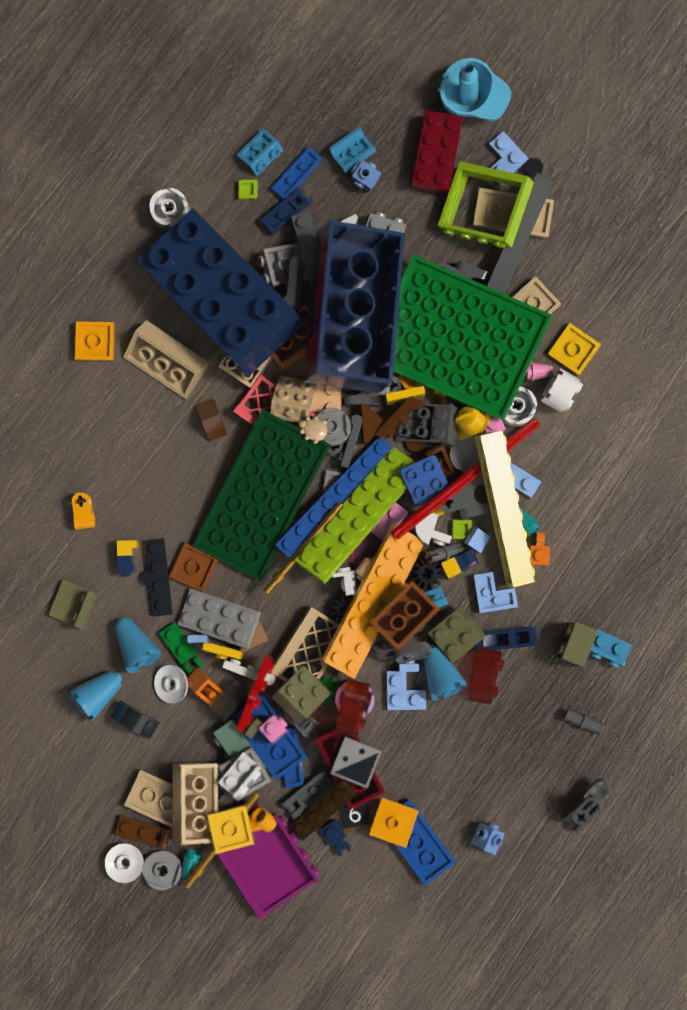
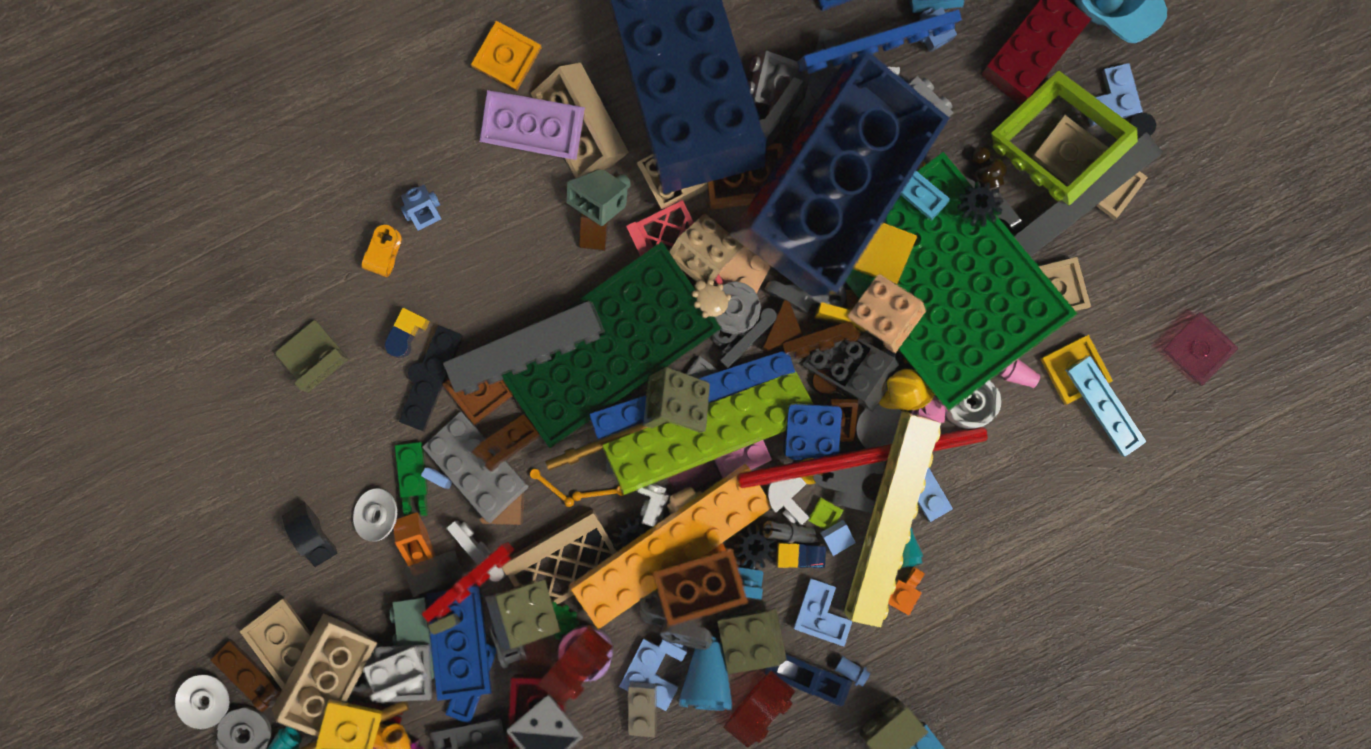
camera: 20 degrees right, 0 degrees up
(93, 469) = (420, 207): none -> medium blue brick
(96, 693) = (278, 478): dark azure cone -> none
(135, 646) = (356, 445): dark azure cone -> none
(136, 377) = (532, 124): none -> lavender tile
(205, 400) = (598, 195): none -> sand green torso
(210, 523) = (524, 347): none -> dark grey brick
(223, 652) = (457, 508): yellow plate -> none
(231, 591) = (506, 442): none -> reddish brown plate
(260, 603) = (535, 474): none -> light orange hinge
(274, 728) = (468, 637): bright pink brick -> none
(282, 213) = (809, 22): dark blue plate -> none
(294, 603) = (577, 496): none -> light orange hinge
(326, 505) = (676, 400): none -> olive bracket
(340, 202) = (887, 40): none -> blue plate
(410, 716) = (642, 709): none -> dark tan plate
(411, 340) = (887, 253): none -> yellow tile
(415, 290) = (924, 196): none -> medium azure plate
(431, 378) = (887, 312): none -> light nougat bracket
(447, 281) = (980, 214): none -> black gear
(451, 251) = (988, 172): none -> dark brown animal
(532, 620) = (852, 671): none -> medium blue pin
(560, 391) = (1036, 411): white brick -> none
(604, 363) = (1105, 405): none -> medium azure plate
(646, 293) = (1200, 349): none -> clear pink plate

